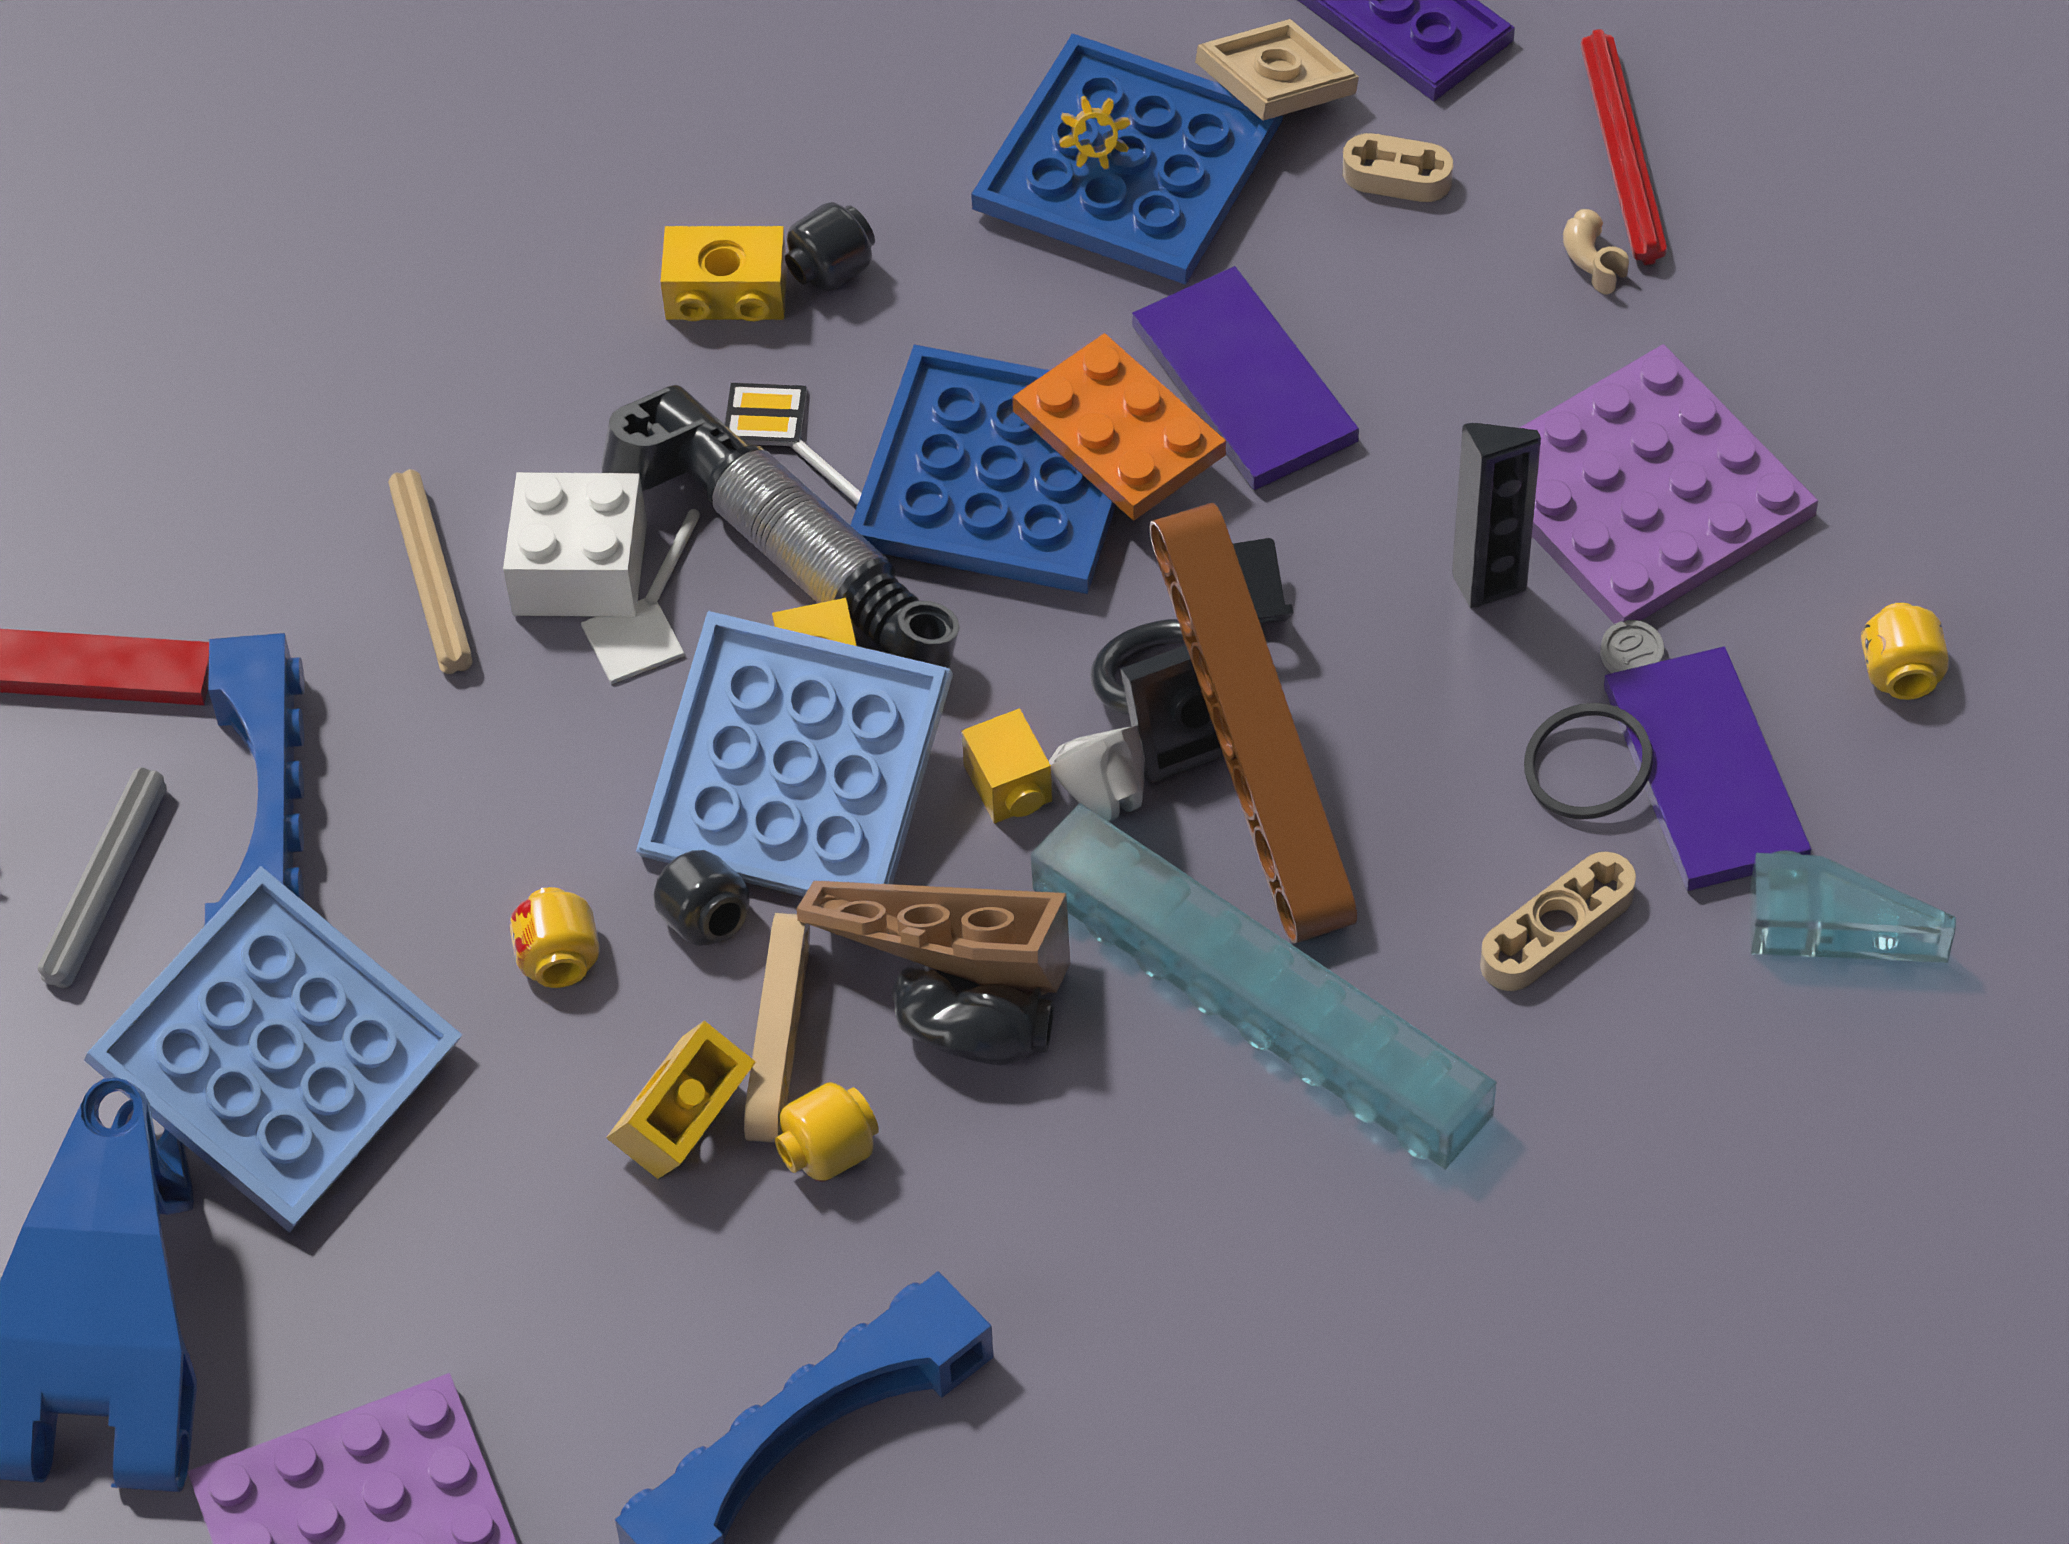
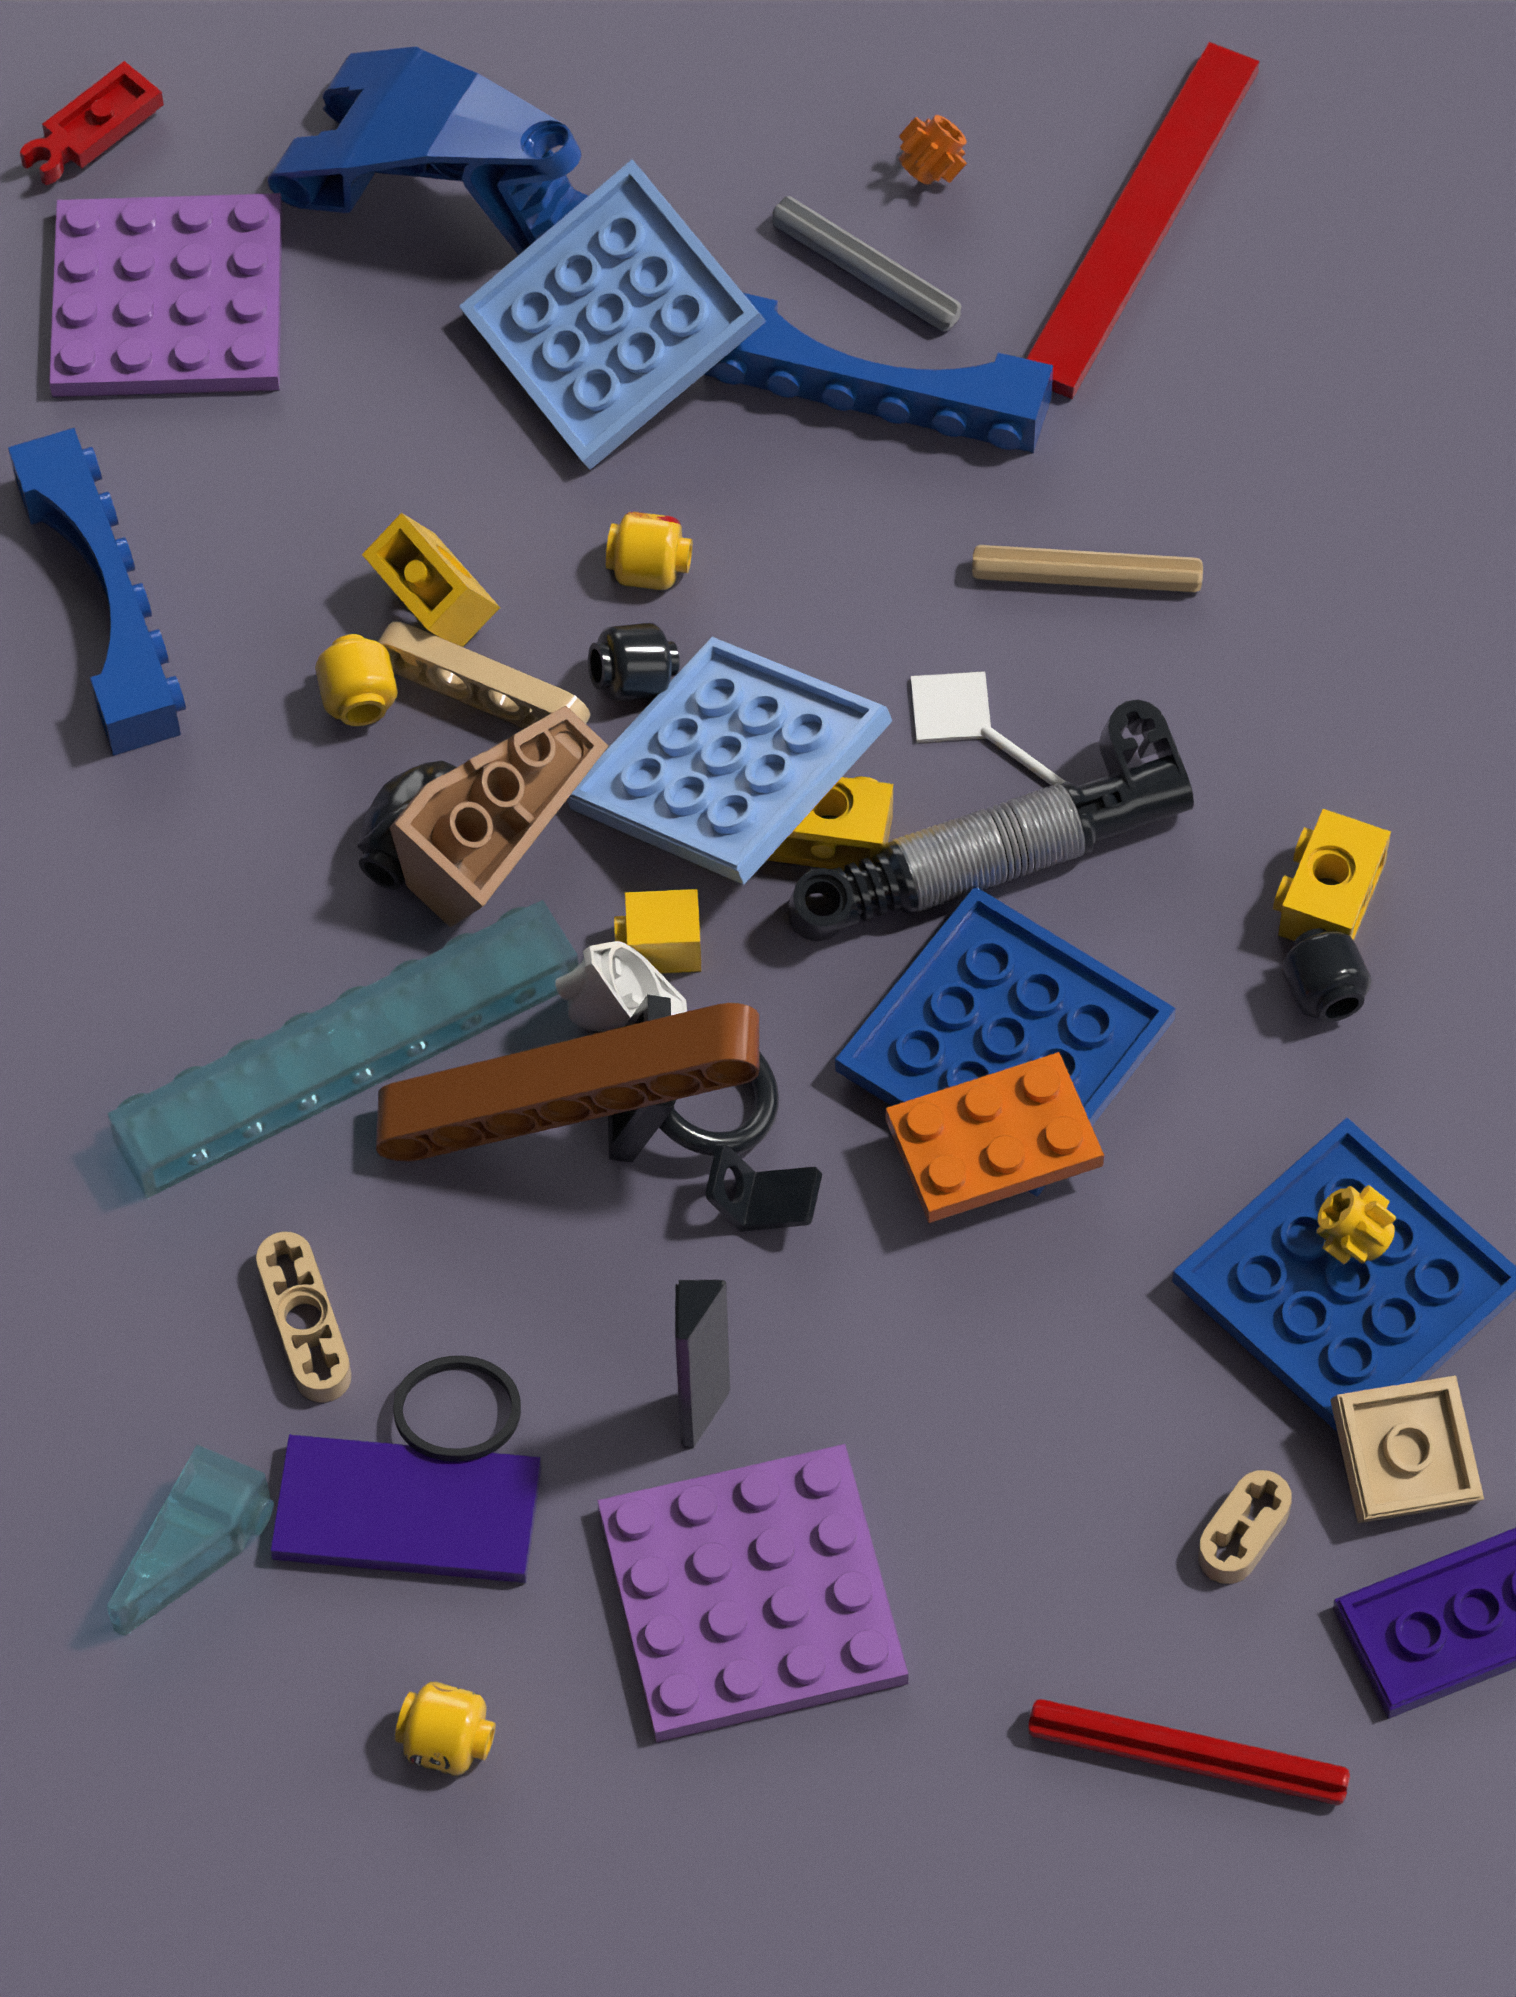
camera: 110 degrees right, 5 degrees up
(575, 544) = (1051, 670): white brick -> none
(775, 417) = (1157, 882): piece -> none
(1245, 377) = (1034, 1290): dark purple tile -> none
(1579, 242) = (1074, 1655): tan arm -> none
(1630, 646) = (568, 1504): light grey piece -> none

